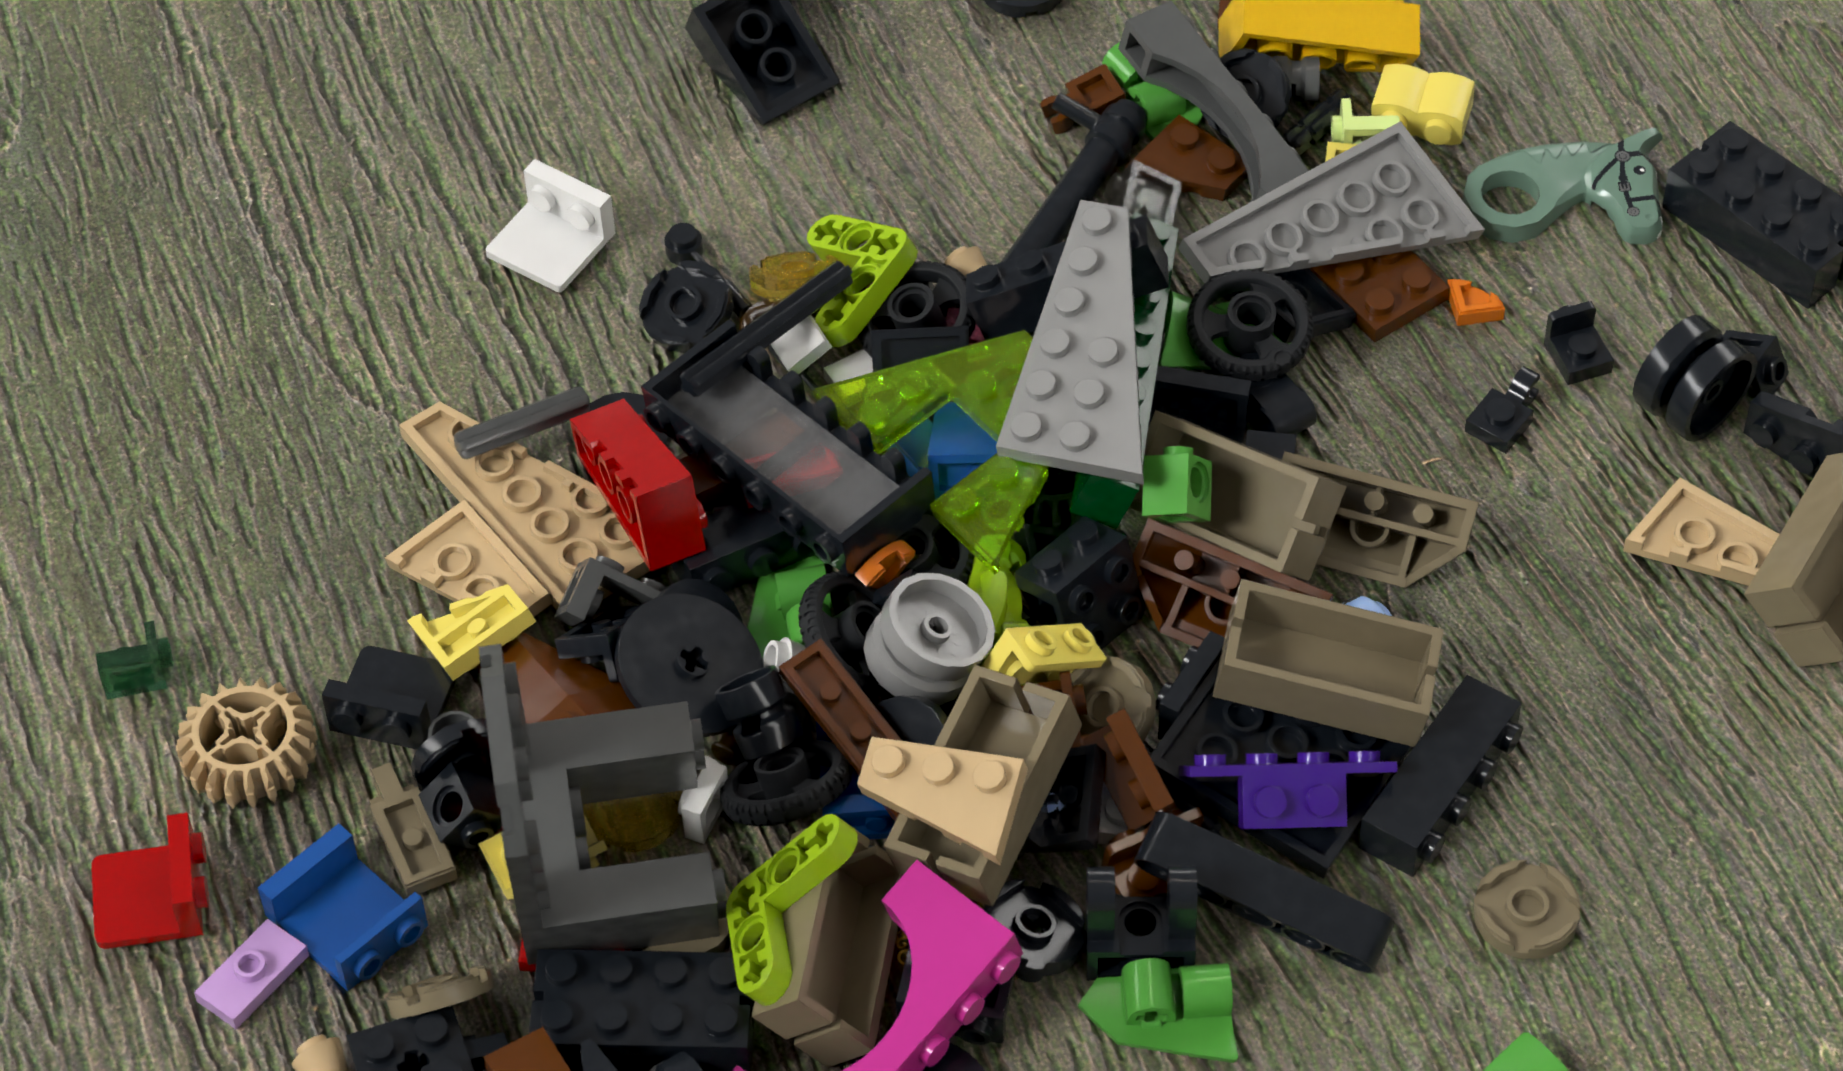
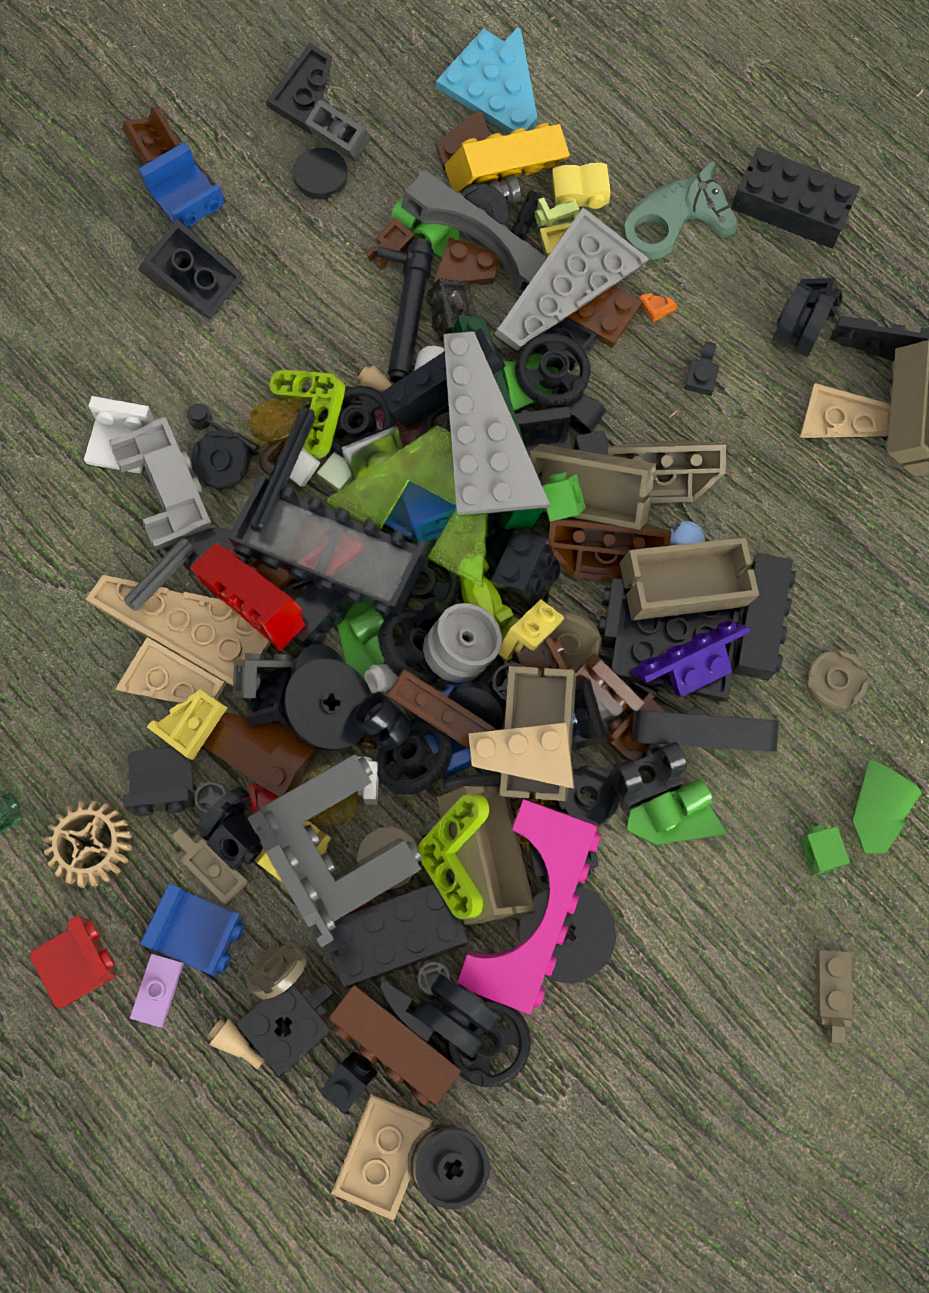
camera: 25 degrees left, 20 degrees up
(600, 295) = (171, 480): none -> light grey bracket
(885, 564) = (414, 599): orange tile -> none
(1576, 343) = (724, 315): black bracket -> none

